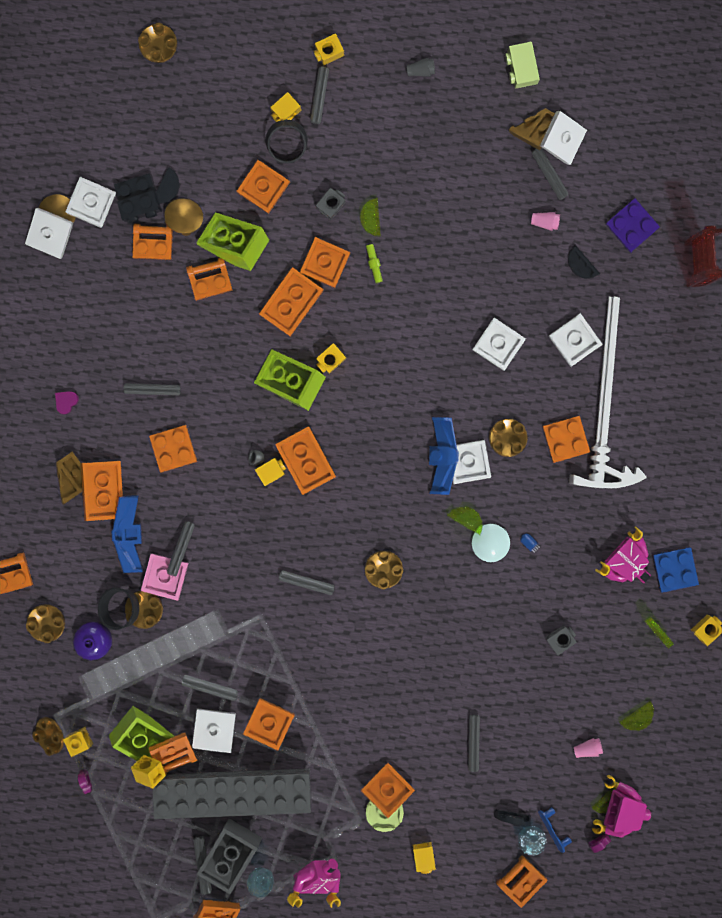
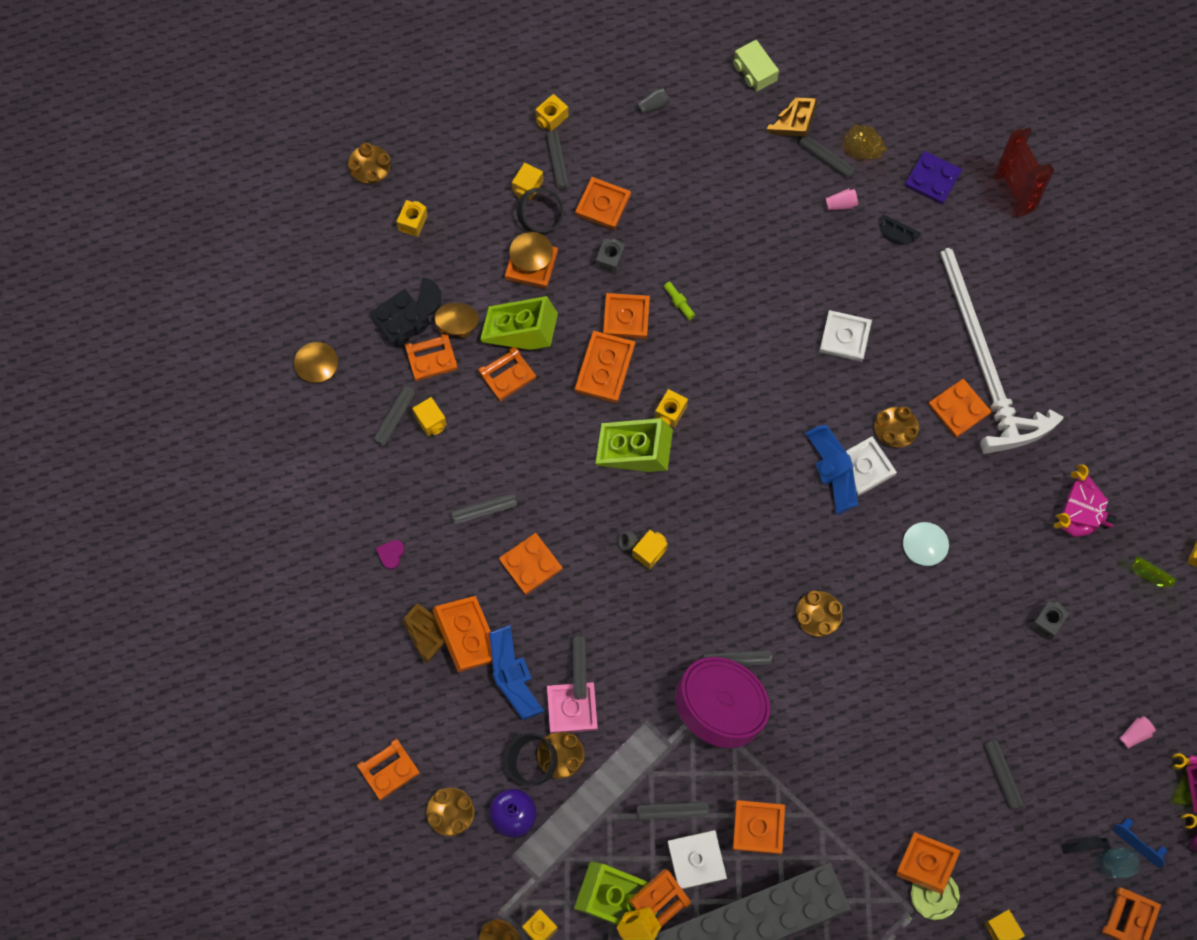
camera: 20 degrees left, 20 degrees down
(49, 233) = (314, 382): white plate -> none
(90, 202) = (350, 338): white plate -> none
(106, 283) = (394, 415): none -> dark grey axle
(133, 297) = (430, 417): none -> yellow brick
(177, 117) = (412, 226): none -> yellow brick
(265, 178) = (531, 251): none -> pearl gold dish
(278, 618) = (722, 702): none -> magenta brick
(305, 460) = (684, 525): orange plate -> none
(343, 151) = (603, 203): none -> orange plate
(370, 217) = (657, 258): clear neon green tile -> none
(468, 518) = (889, 525): clear neon green tile -> none
(529, 542) = (968, 529): blue piece -> none
(563, 137) = (826, 117): white plate -> none
(575, 340) = (924, 305): white plate -> none
(586, 173) = (864, 142): none -> clear yellow hair
(640, 718) = (1178, 679): clear neon green tile -> none
(675, 569) = (1140, 503): blue plate -> none

